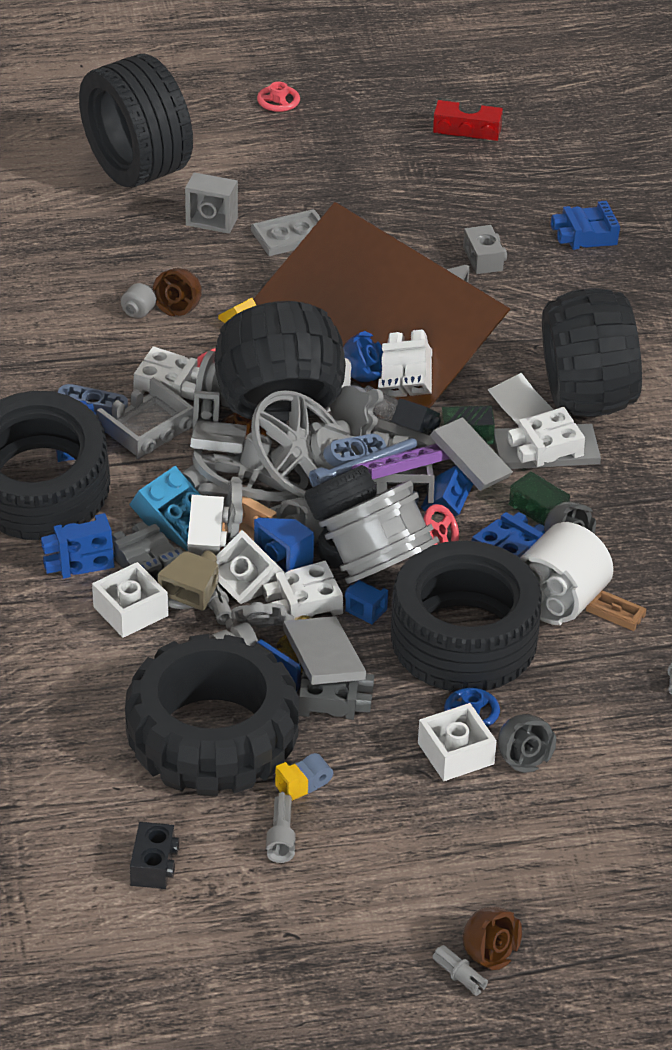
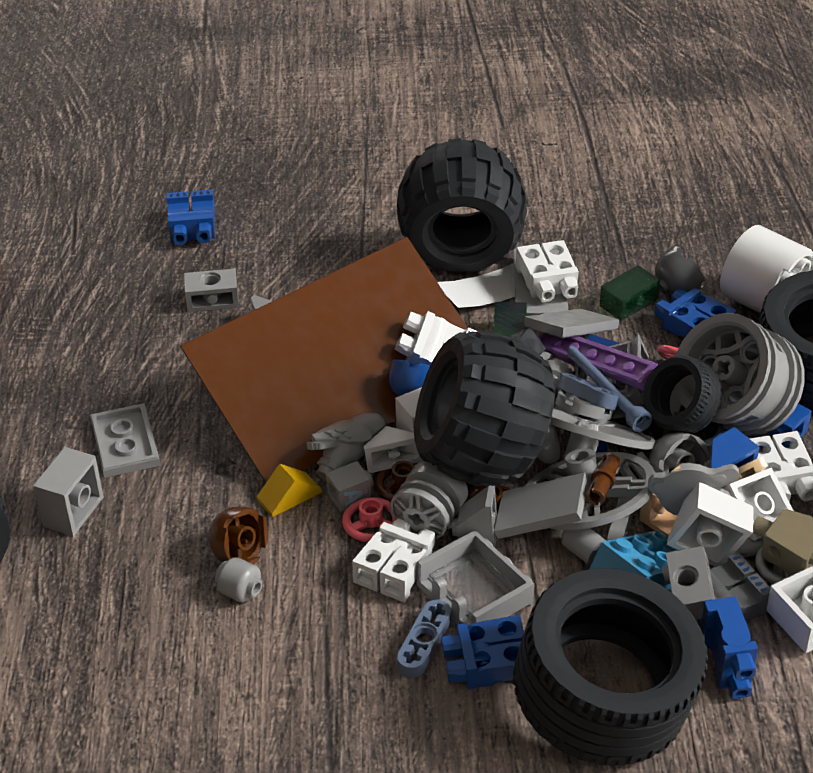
camera: 80 degrees left, 0 degrees up
(134, 516) = (690, 567): none -> light grey brick
(239, 458) = (602, 479): none -> reddish brown pin
(268, 547) = (752, 468): none -> tan tile

